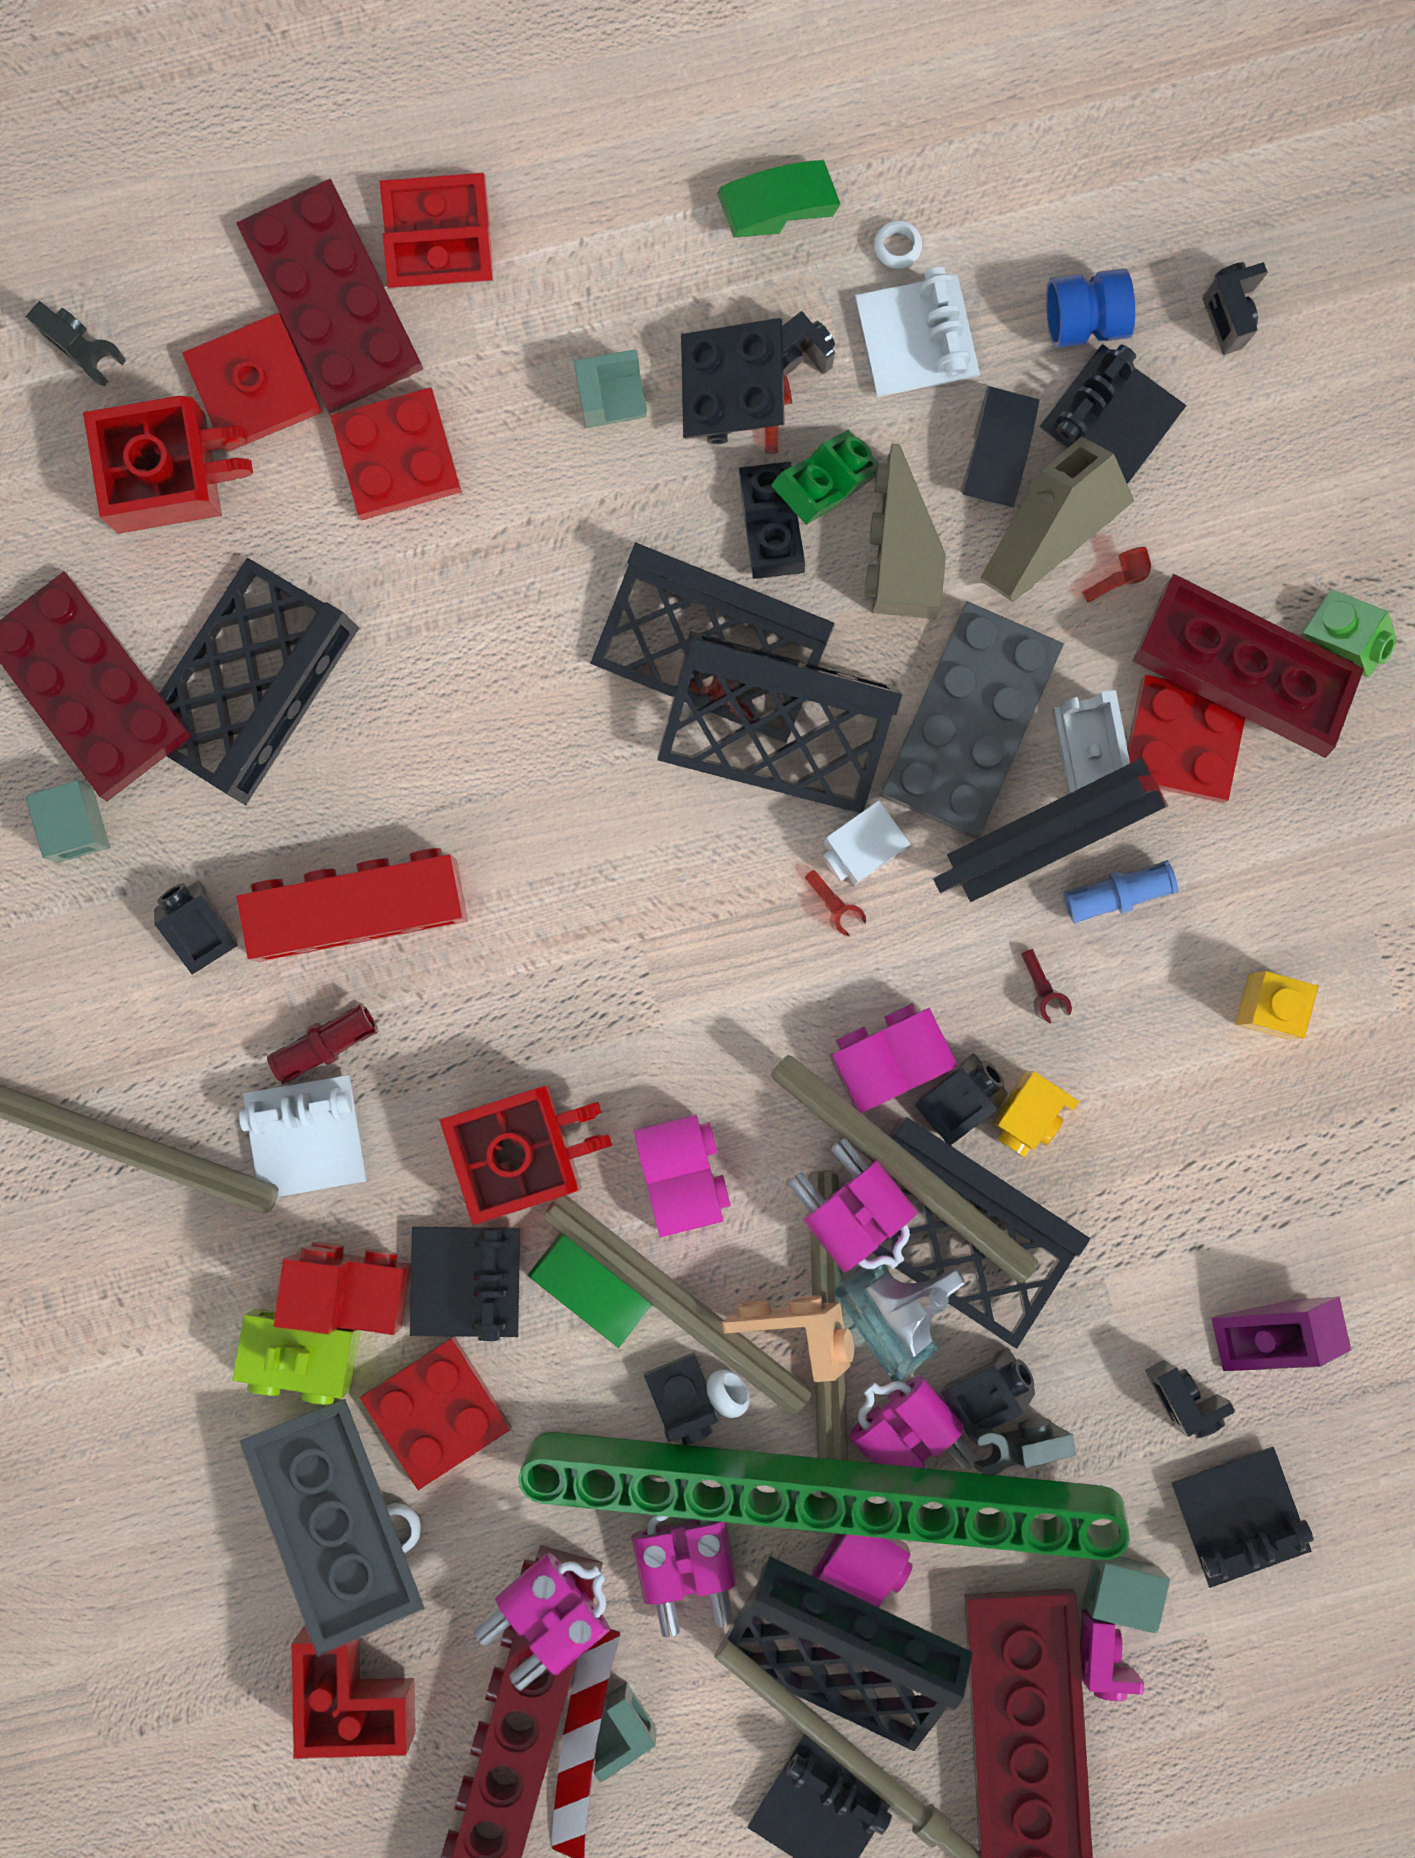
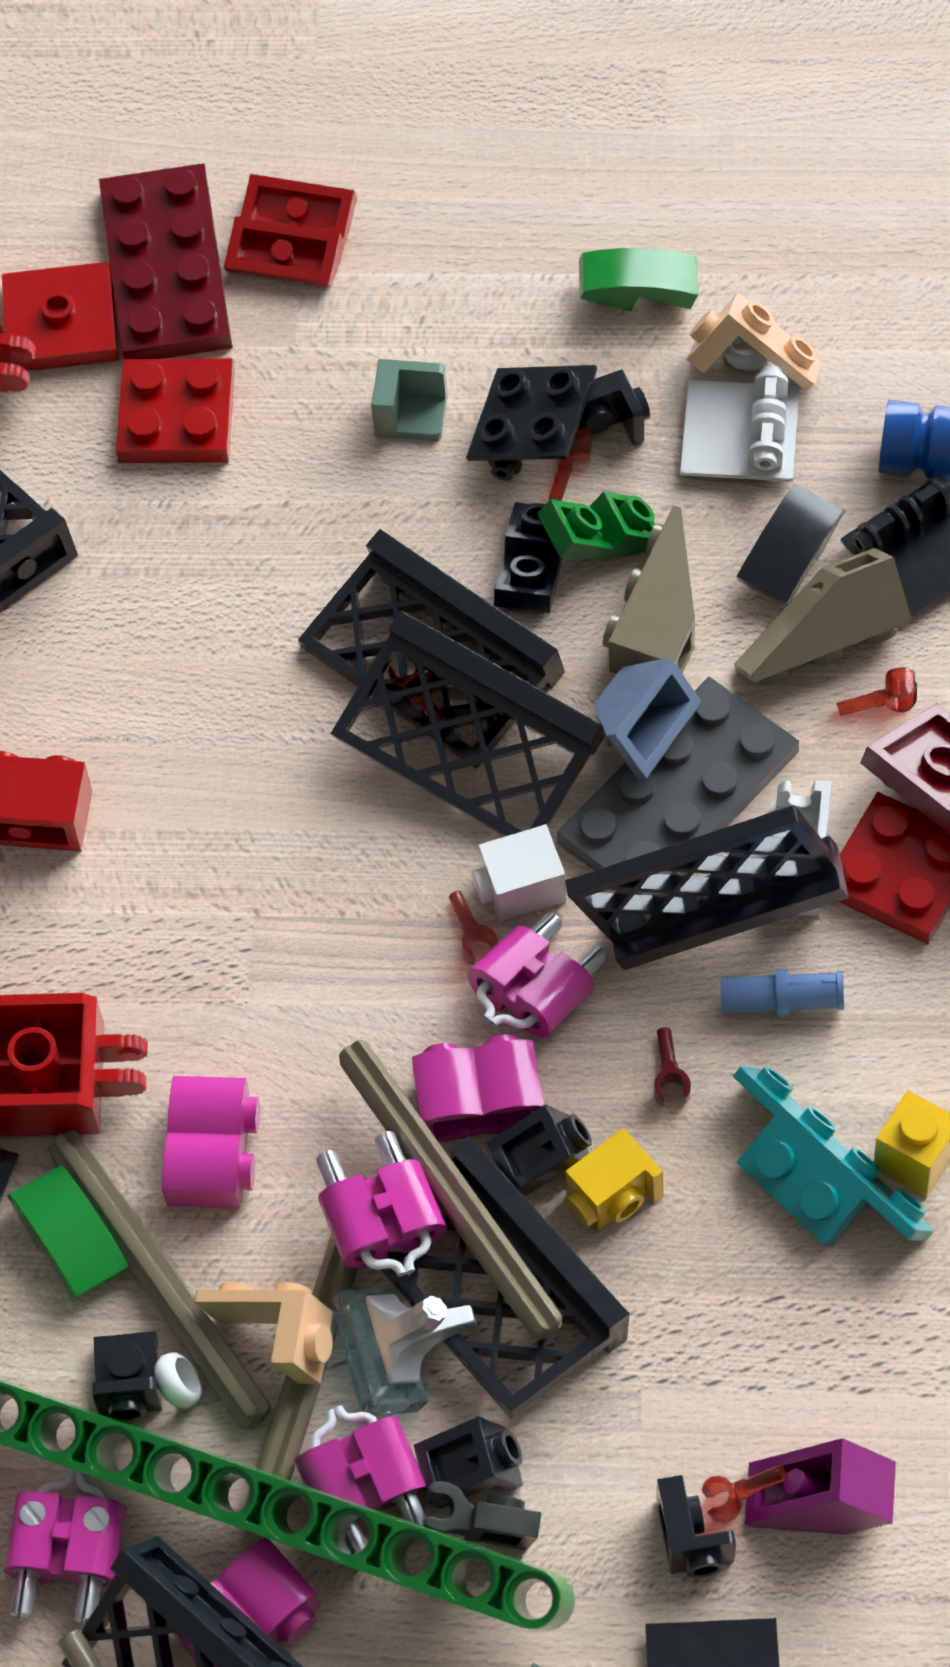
camera: 25 degrees right, 25 degrees down
(897, 228) = (757, 327): none -> light nougat bracket
(906, 943) = (532, 980): none -> dark pink piece
(930, 665) = (646, 712): none -> sand blue slope
(1195, 1049) = (814, 1172): none -> teal bracket
(1218, 1352) = (738, 1491): none -> clear red hand

